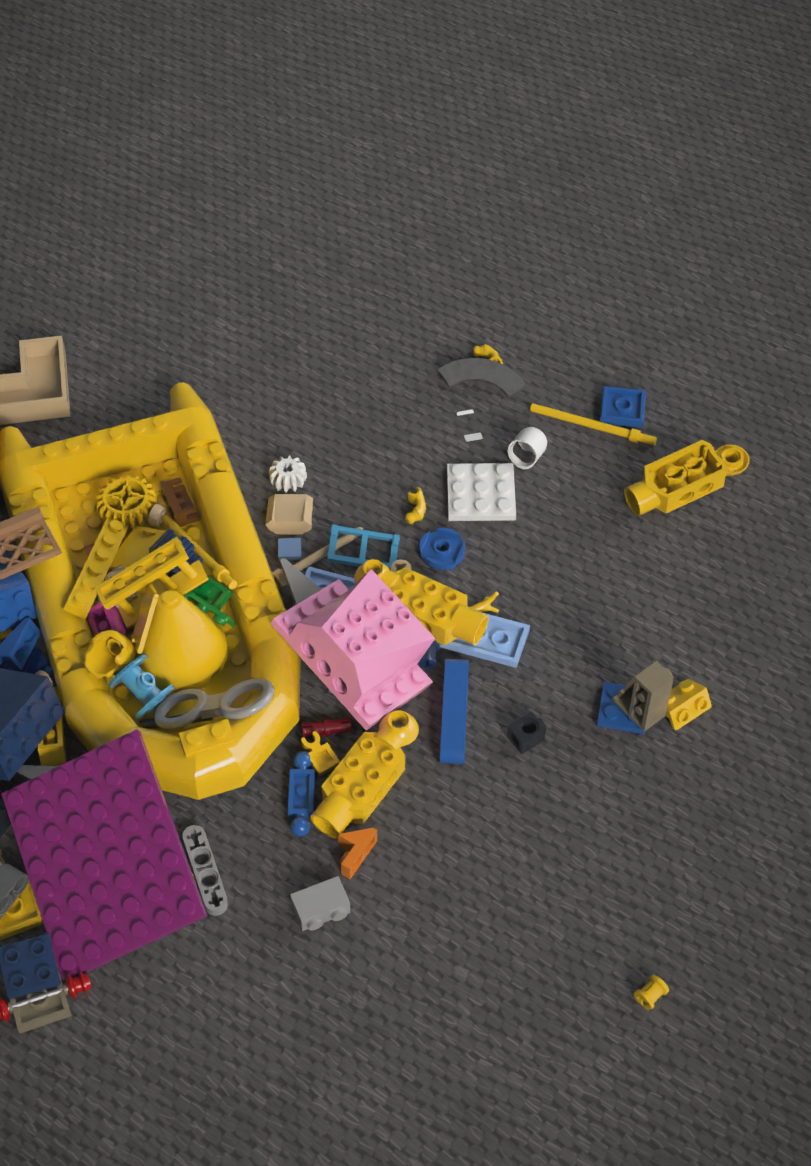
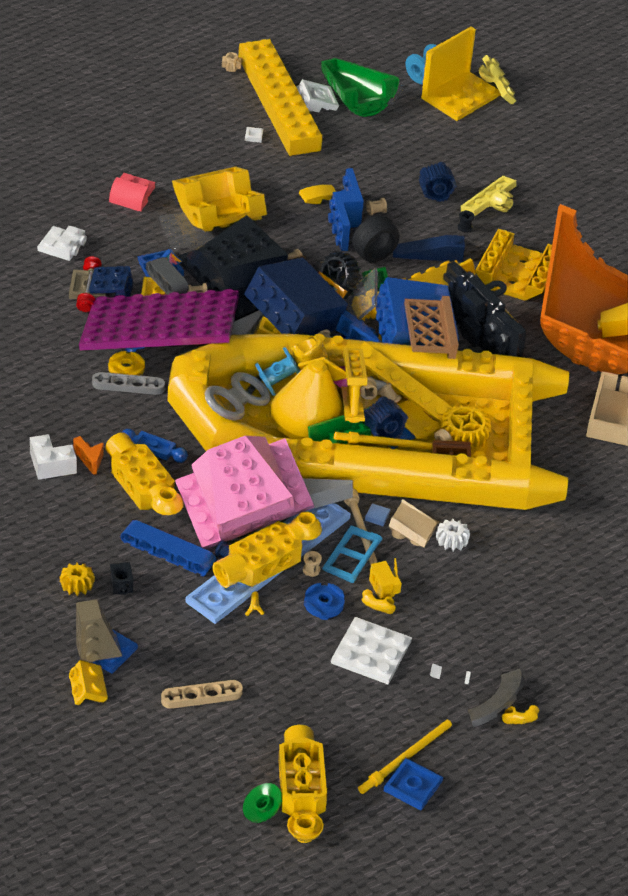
camera: 110 degrees right, 10 degrees down
(320, 904) = (61, 423): light grey brick -> none
(321, 757) = (176, 464): yellow plate -> none
(388, 503) = (383, 580): none -> yellow piece
(391, 886) = (51, 461): none -> white brick
(530, 440) = (398, 691): white helmet -> none
(562, 774) = (77, 578): none -> yellow gear
(632, 601) = (201, 692): none -> tan beam
(735, 497) = (262, 802): none -> green dish

